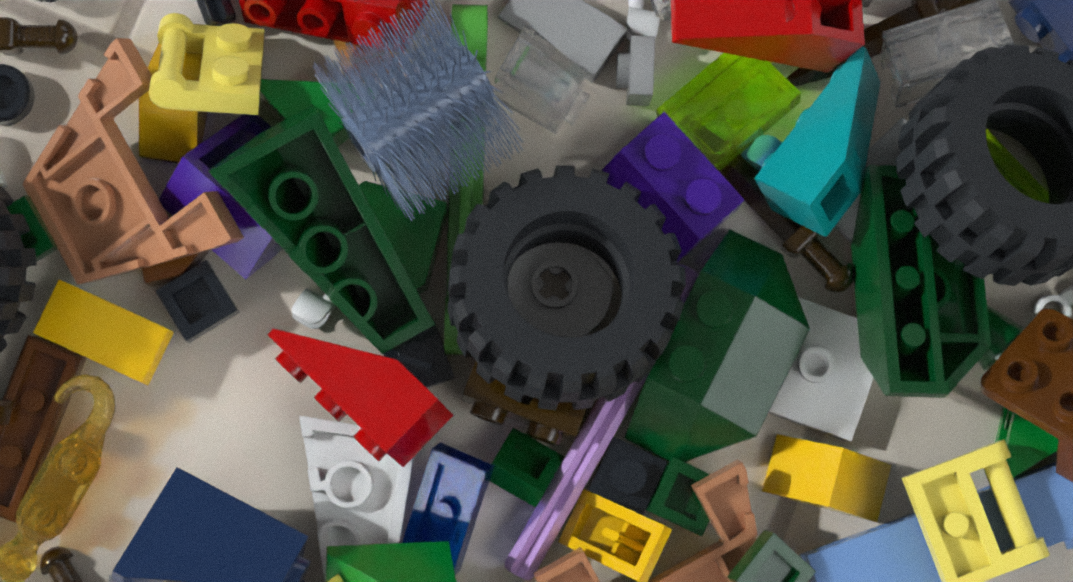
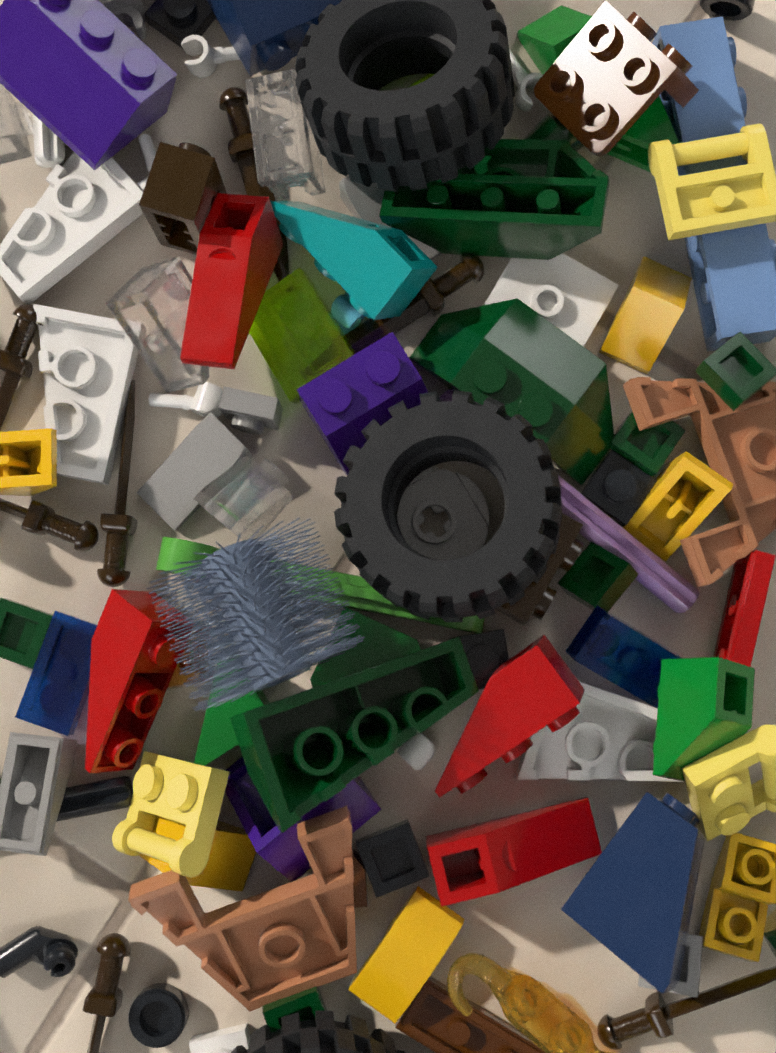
camera: 75 degrees left, 0 degrees up
(226, 418) = (511, 850): none -> red slope

